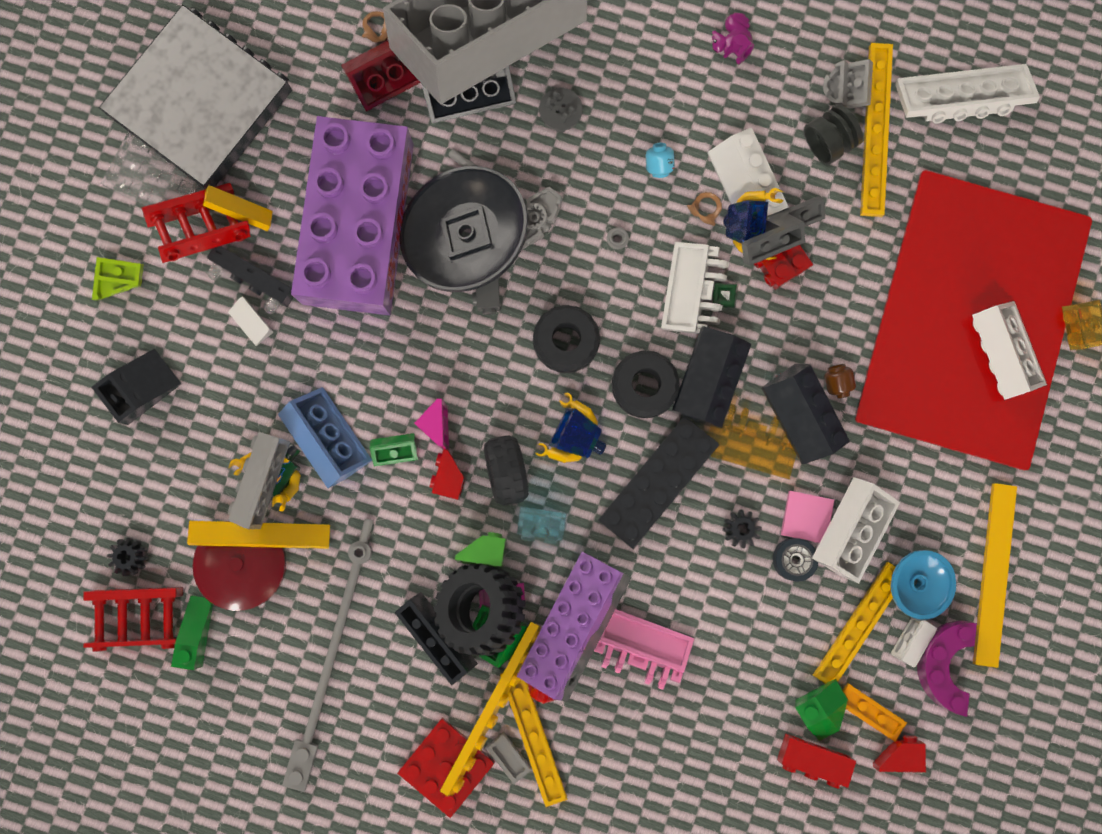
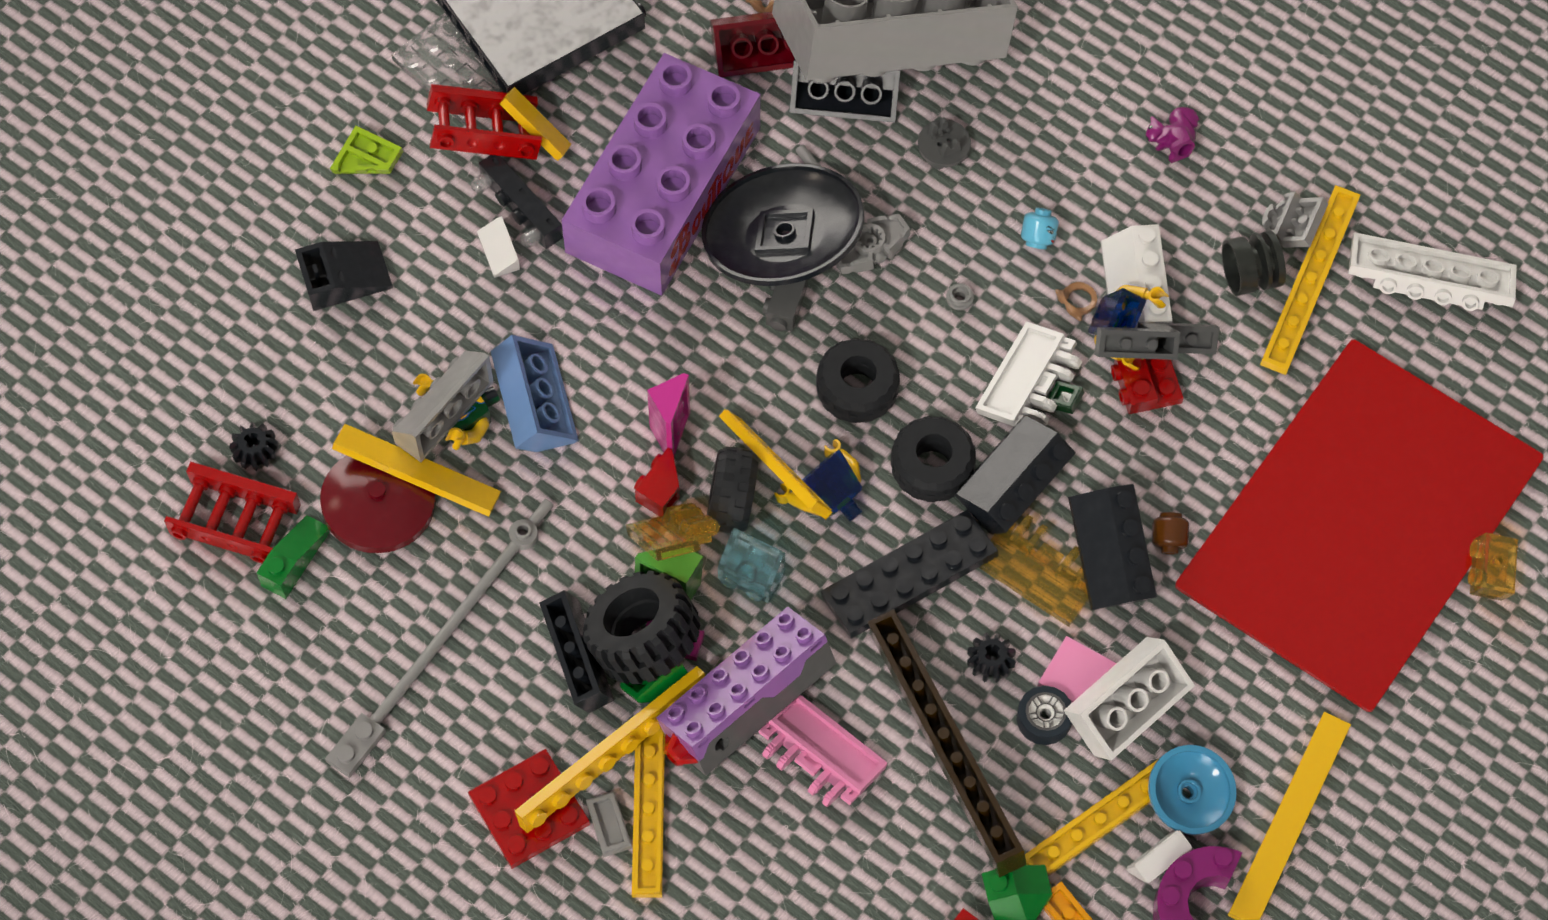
camera: 20 degrees right, 20 degrees down
(393, 449) = (607, 438): green slope -> none
(474, 527) = (675, 533): none -> clear yellow hinge
(532, 439) = (776, 464): none -> yellow tile
(738, 620) = (947, 744): none -> dark brown brick
(1008, 350) = (1389, 561): white slope -> none

